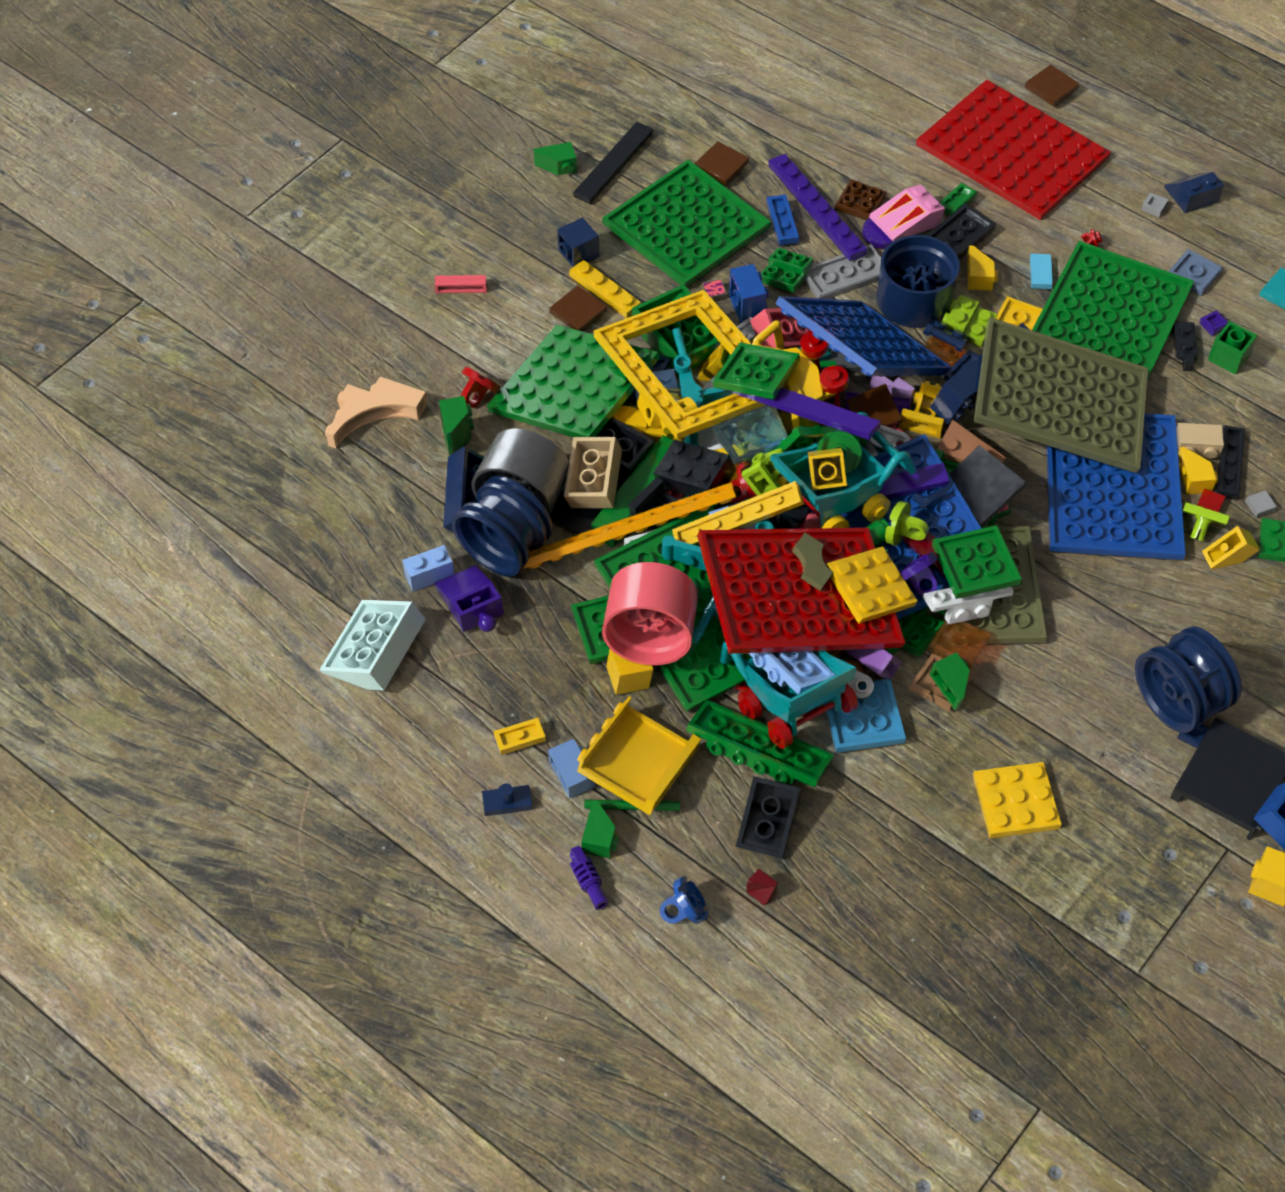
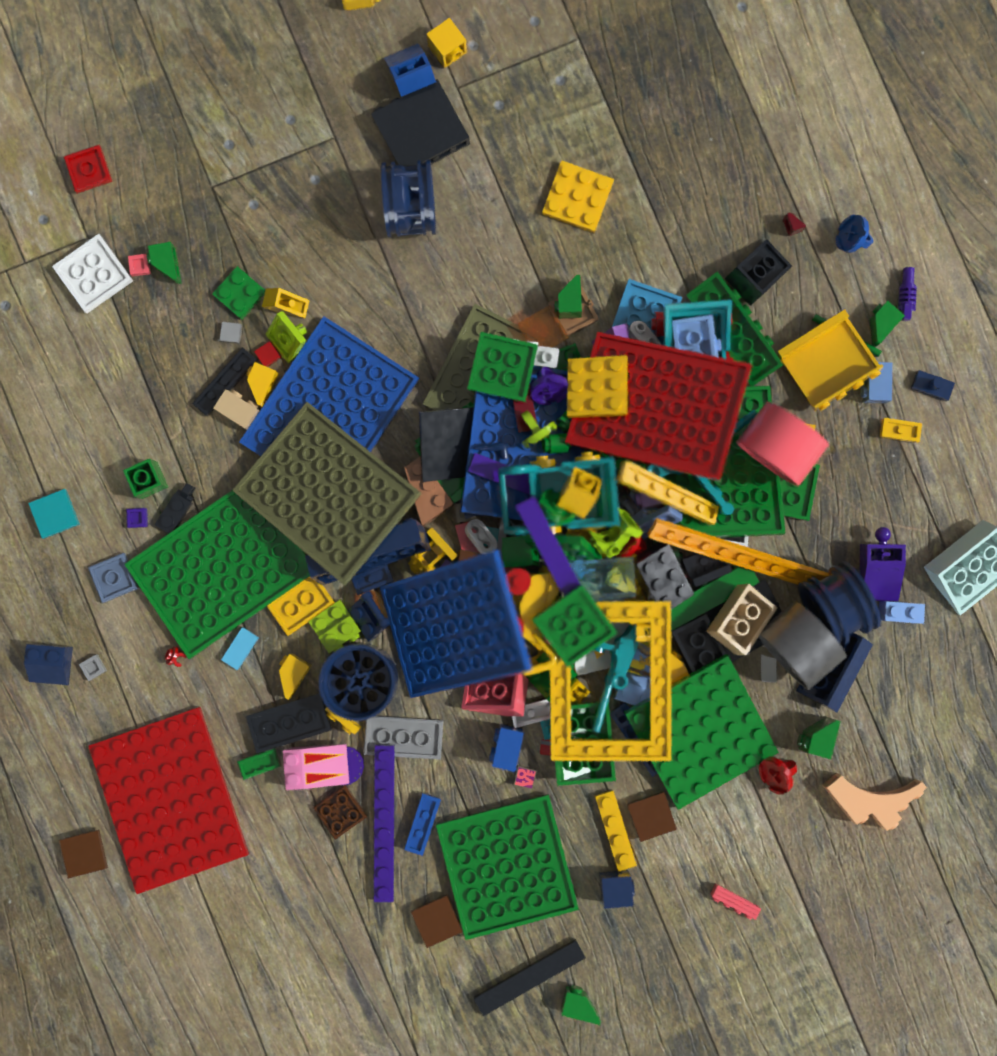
camera: 155 degrees left, 30 degrees up
(786, 270) = (454, 764): green slope -> none
(810, 554) = (639, 411): olive tile -> none

